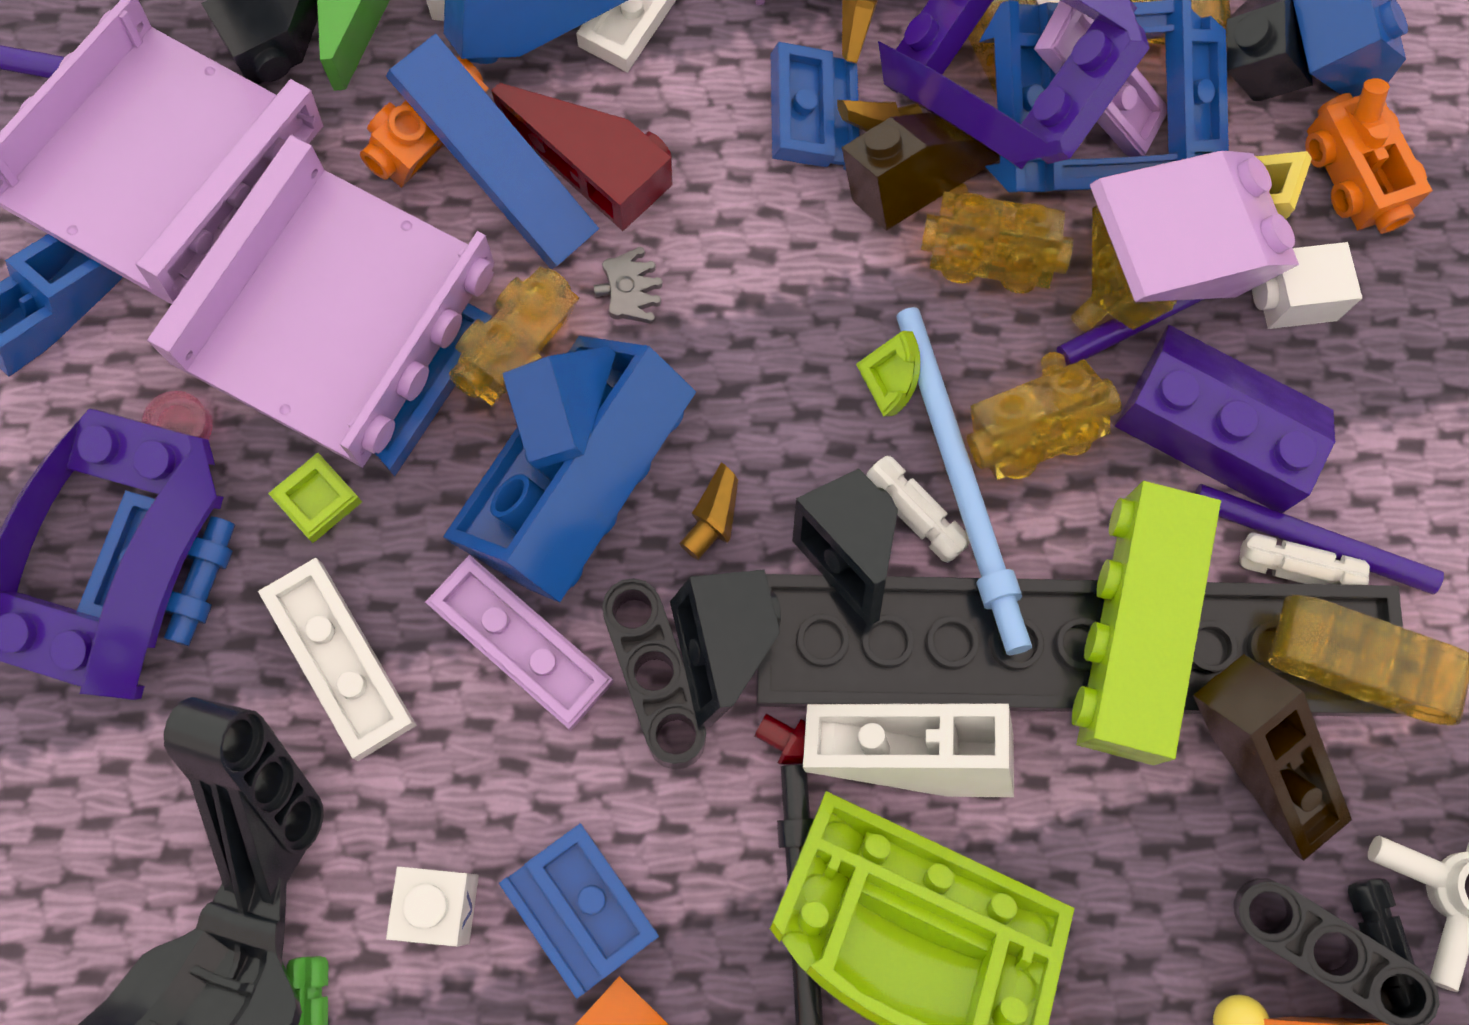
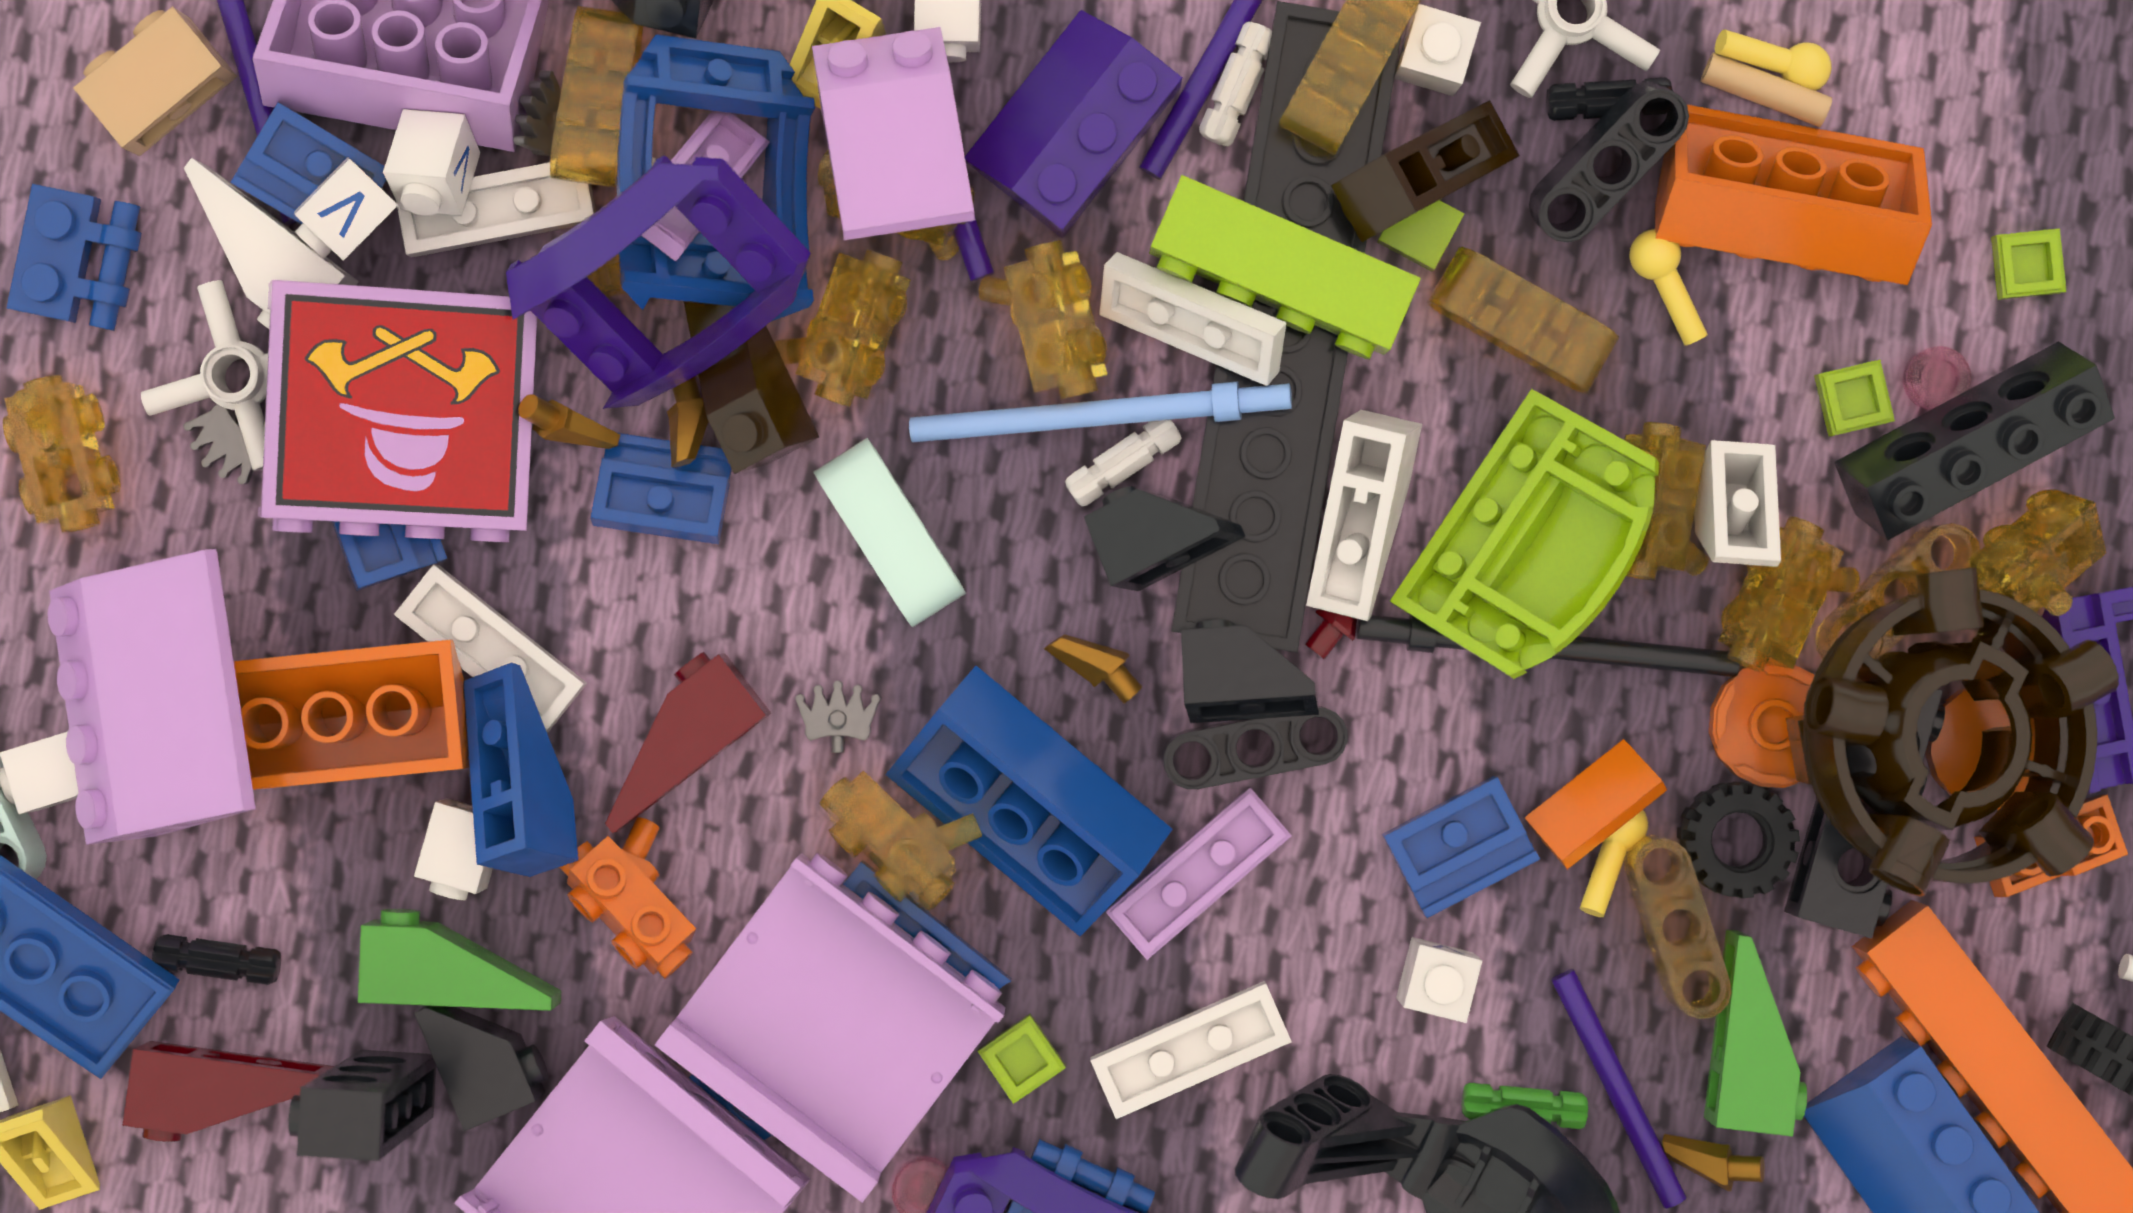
camera: 85 degrees left, 15 degrees up
(492, 151) = (687, 839): blue tile -> none
(558, 402) = (978, 804): blue slope -> none
(808, 302) = (889, 532): none -> light aqua beam
(892, 372) = (979, 460): lime tile -> none
(1074, 546) = (1192, 318): none -> white plate
(1142, 890) = (1523, 319): none -> clear yellow beam
(1203, 771) = (1423, 234): none -> lime tile
(1395, 751) = (1436, 50): none -> white brick

